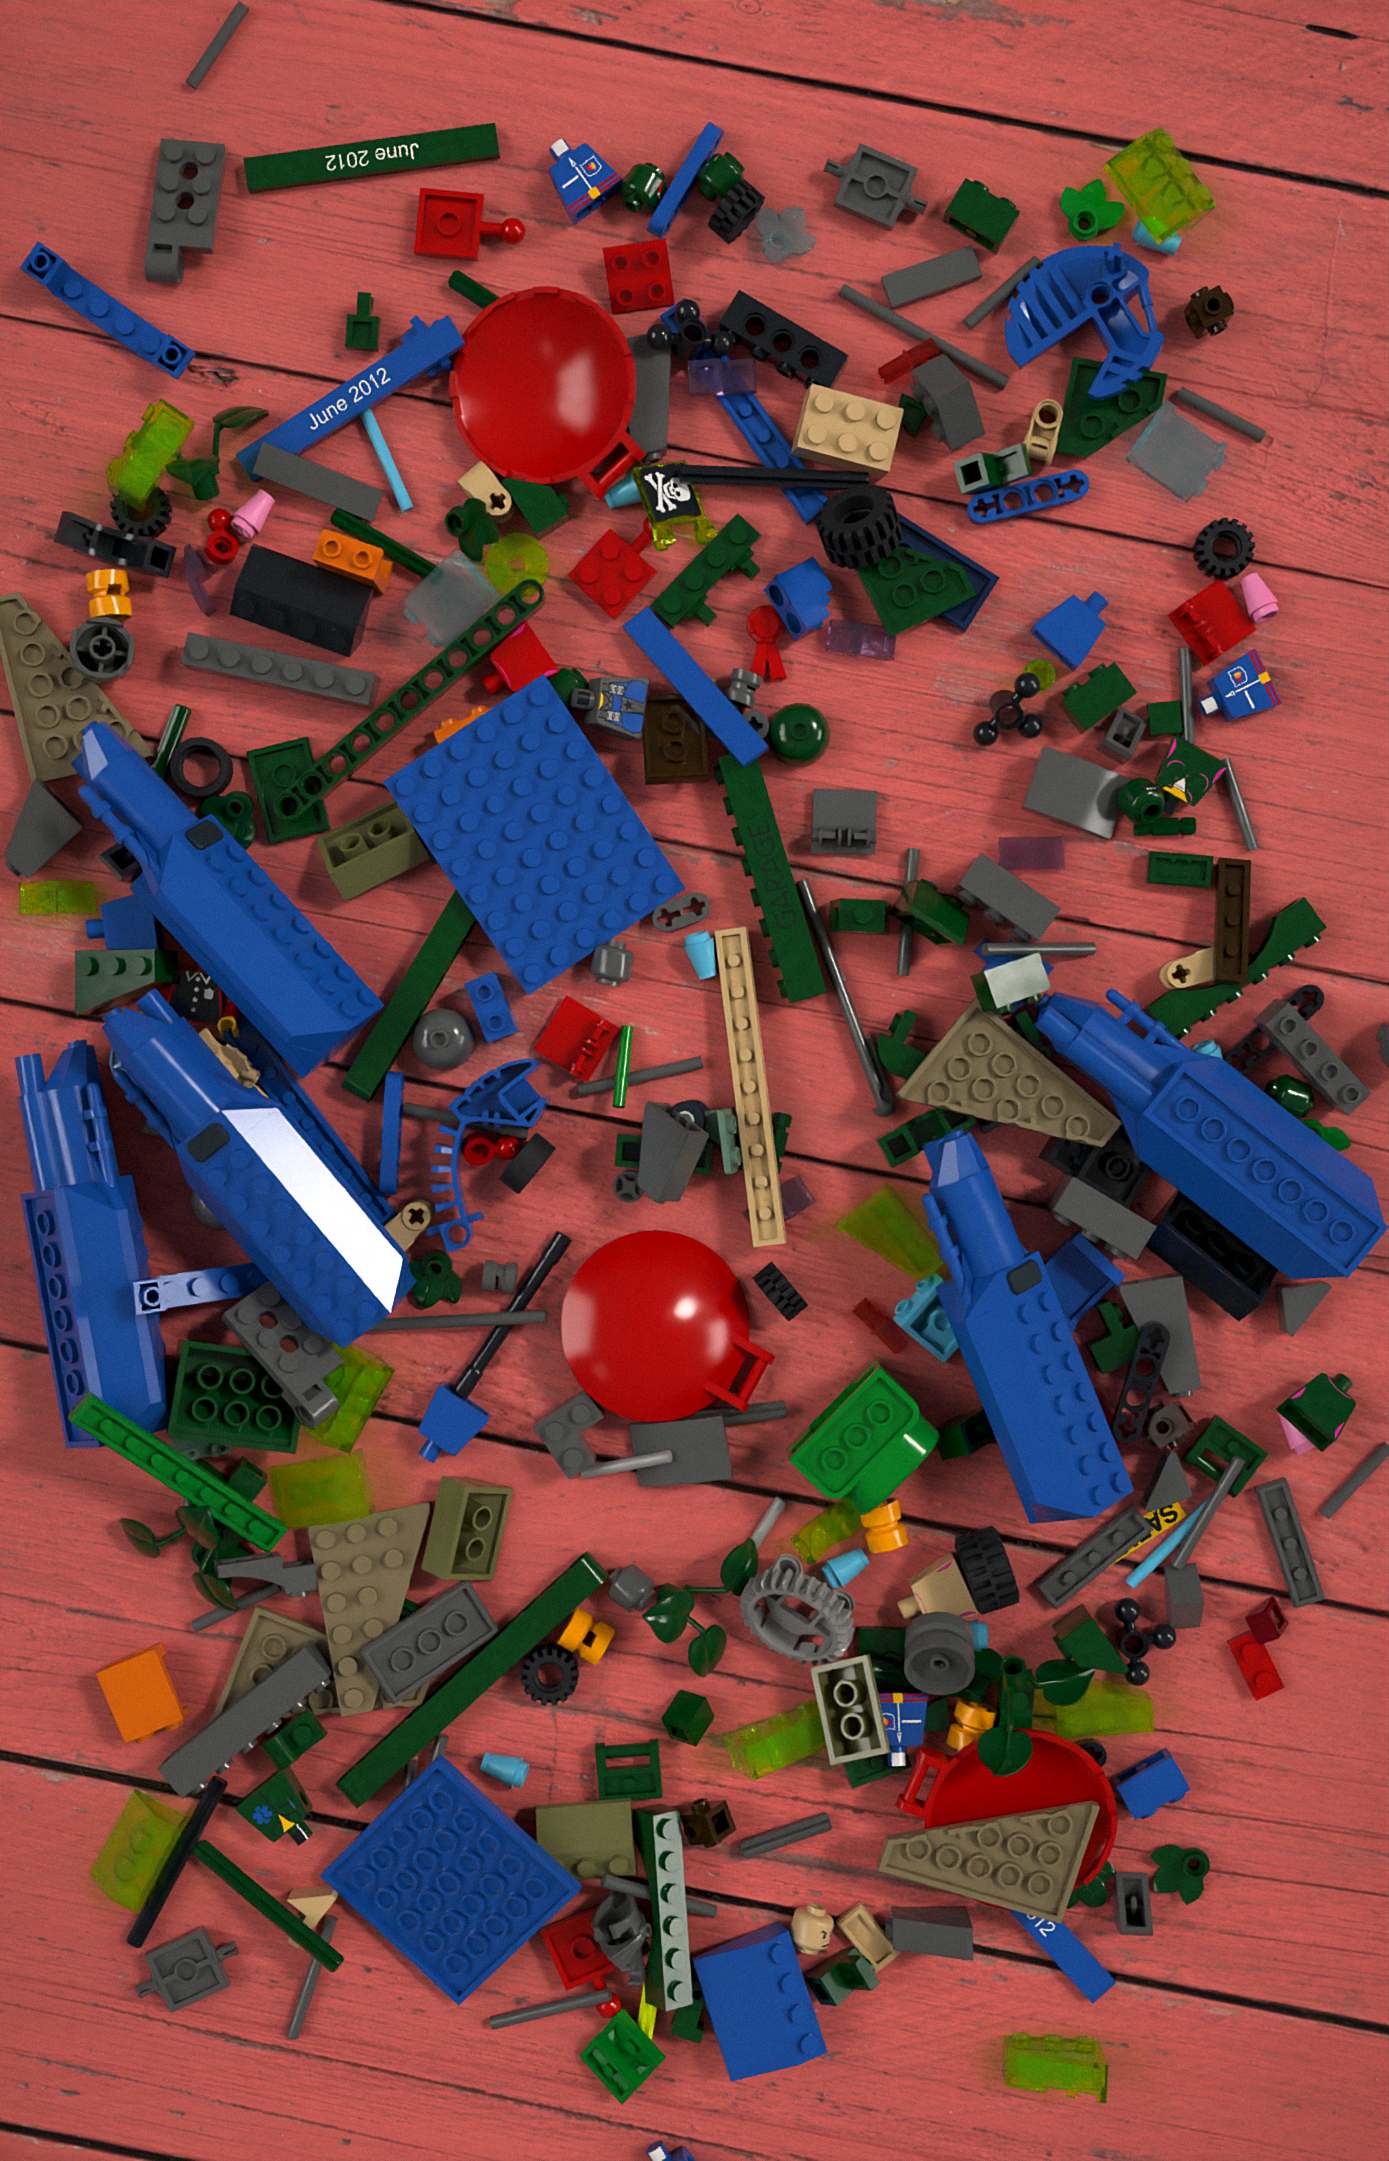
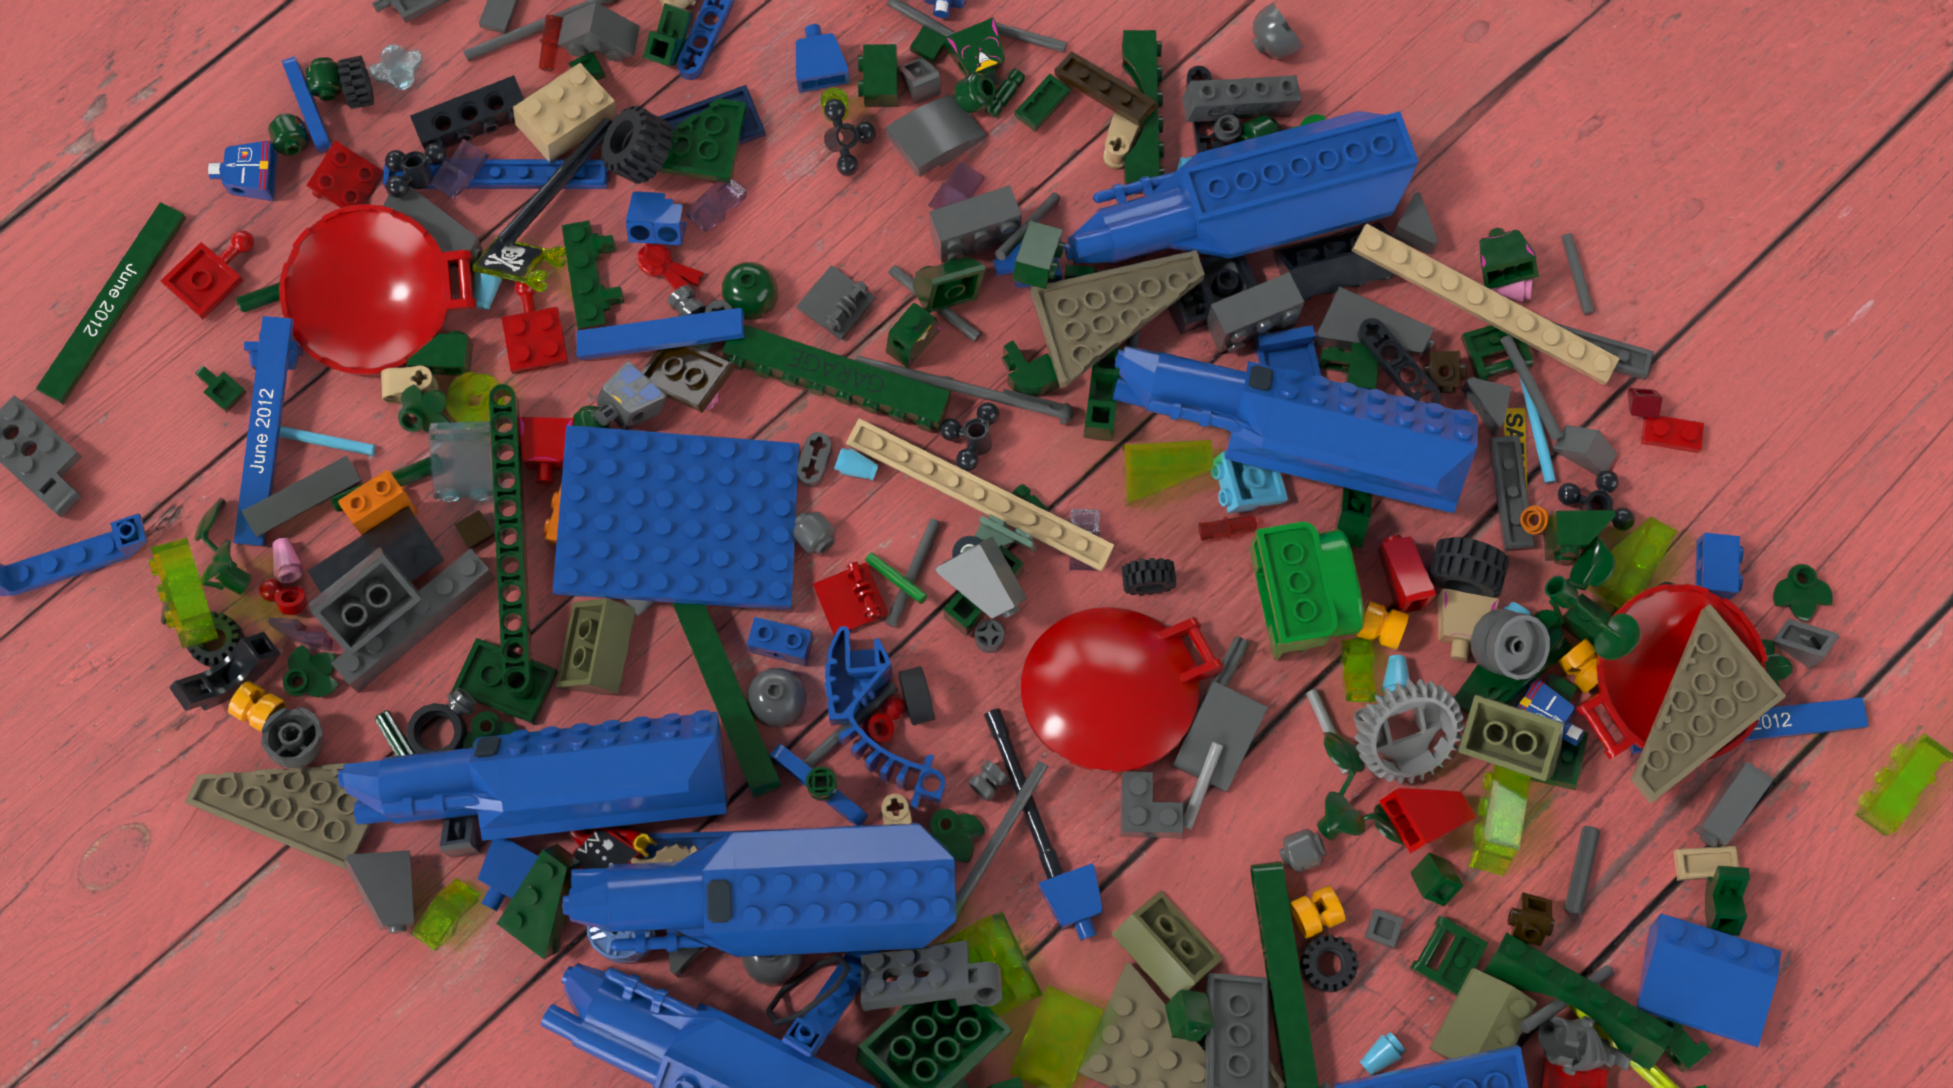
camera: 55 degrees left, 15 degrees down
(178, 615) = (314, 671): none -> dark green plate
(198, 1281) = (777, 1022): none -> black piece
(240, 770) = (461, 702): none -> dark grey plate
(255, 623) = (364, 601): none -> dark grey brick
(392, 1139) = (821, 789): none -> dark green wheel
(401, 658) = (474, 530): none -> dark brown tile
(416, 1590) = (1189, 1015): none -> dark green brick
(613, 1700) = (1383, 928): none -> dark grey plate
(733, 1679) = (1426, 814): none -> red slope
(796, 1016) = (952, 430): none -> black piece
(811, 1928) = (1671, 897): tan head -> none
(945, 1515) = (1406, 574): none -> red slope
(1072, 1591) = (1527, 519): none -> orange plate
(1257, 1419) = (1485, 304): none -> tan plate
(1281, 1060) = (1226, 122): none -> dark grey plate

